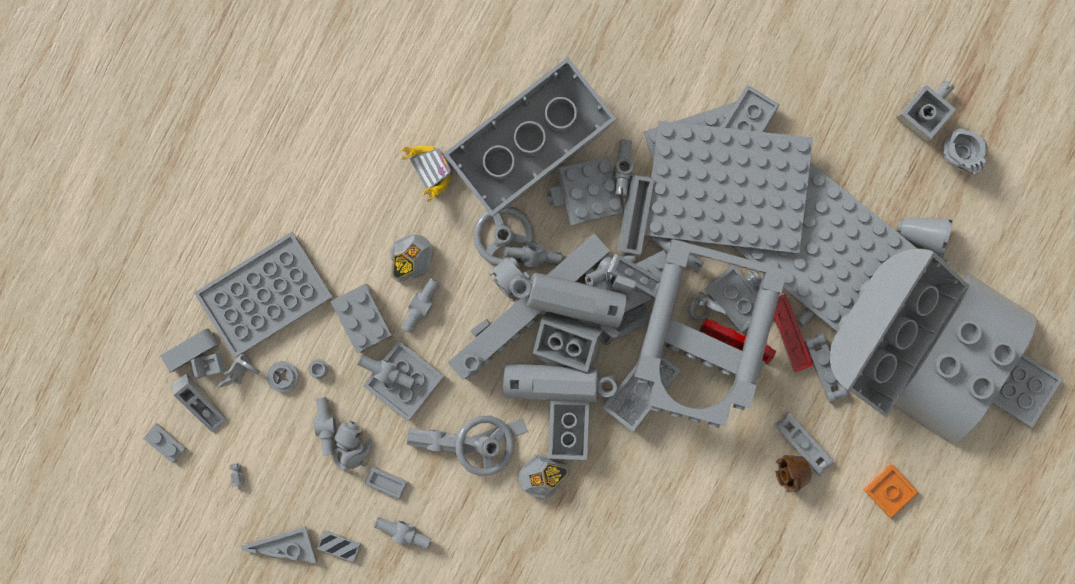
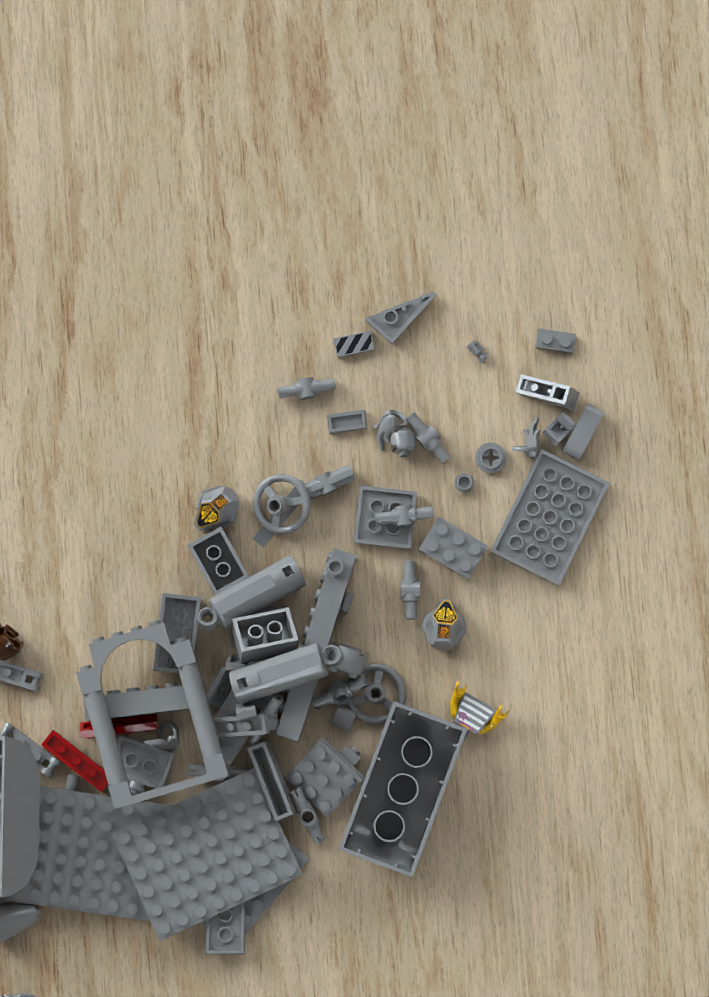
camera: 145 degrees right, 5 degrees down
(543, 231) = (343, 718): none -> light grey tile

